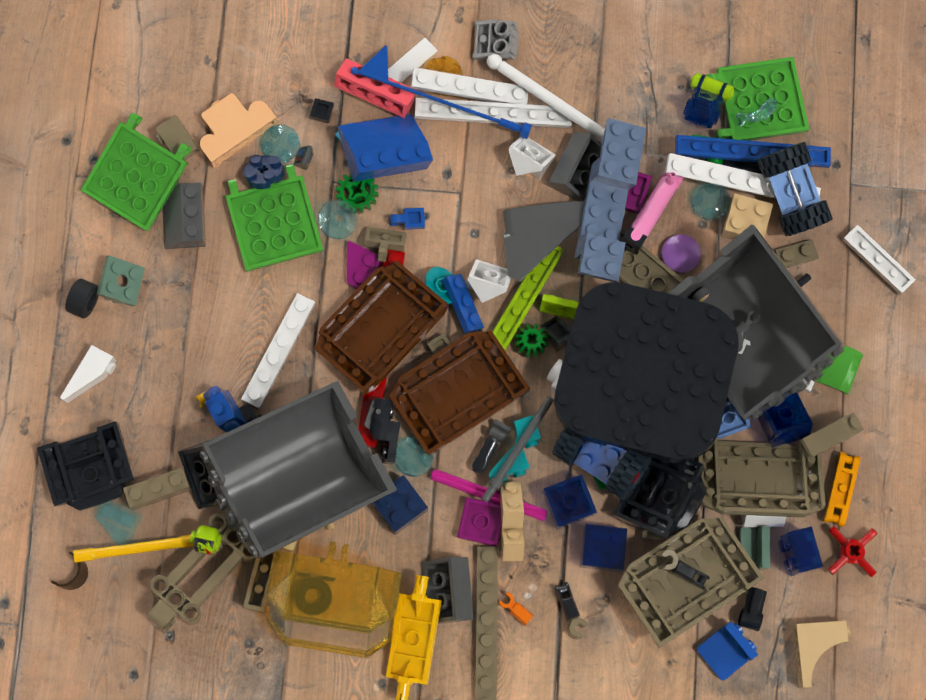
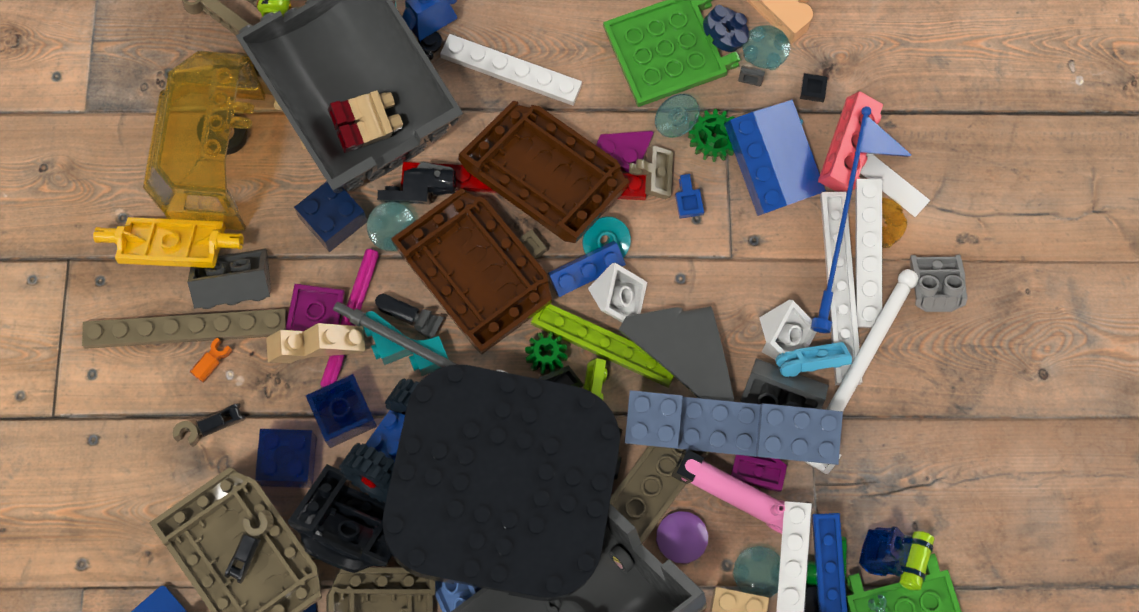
camera: 90 degrees right, 5 degrees down
(325, 468) = (364, 120): none -> tan hips
(554, 138) = (813, 358): none -> medium azure hinge

